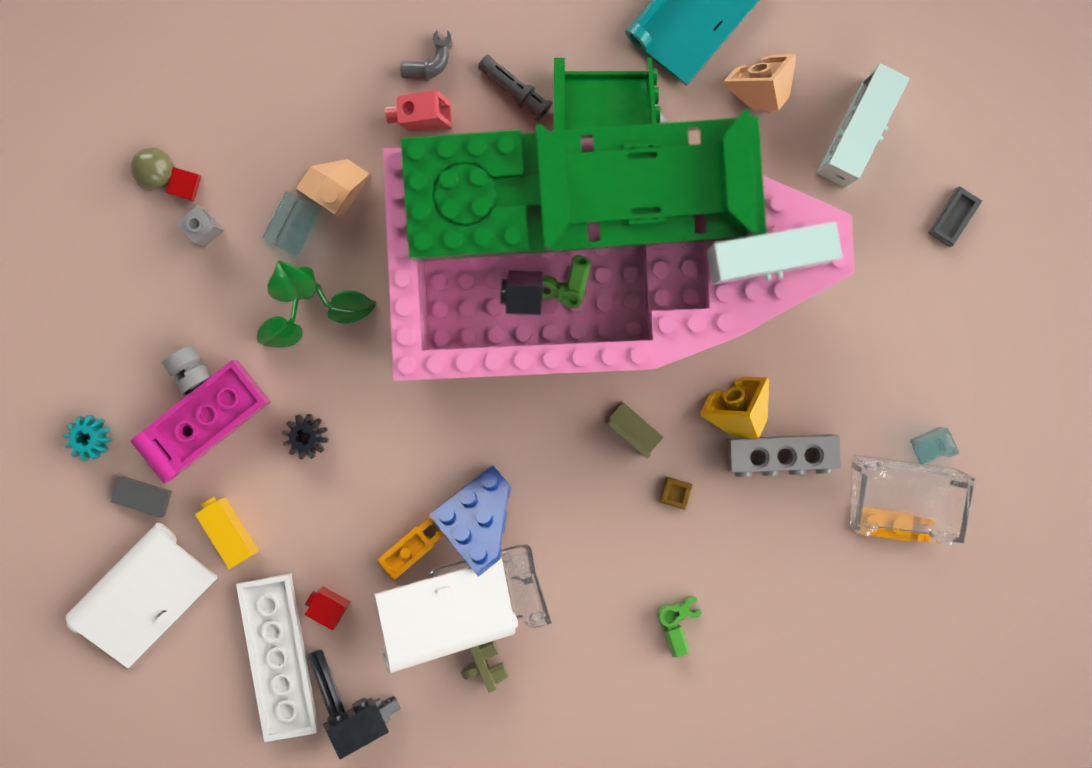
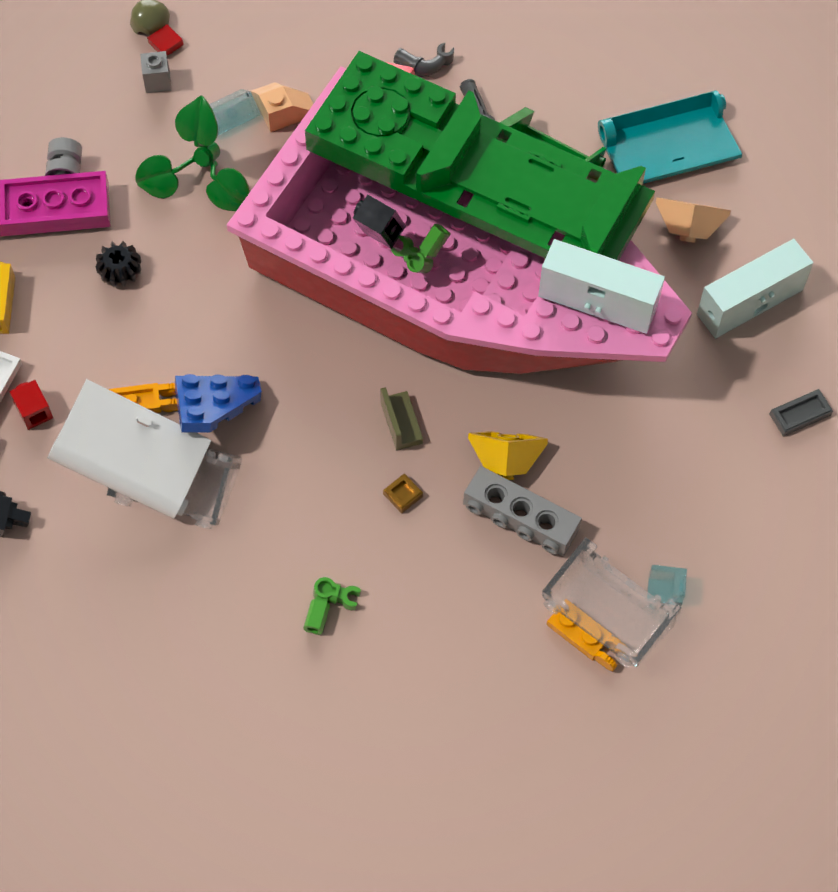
camera: 30 degrees right, 25 degrees down
(490, 675) = (126, 529): olive hips -> none

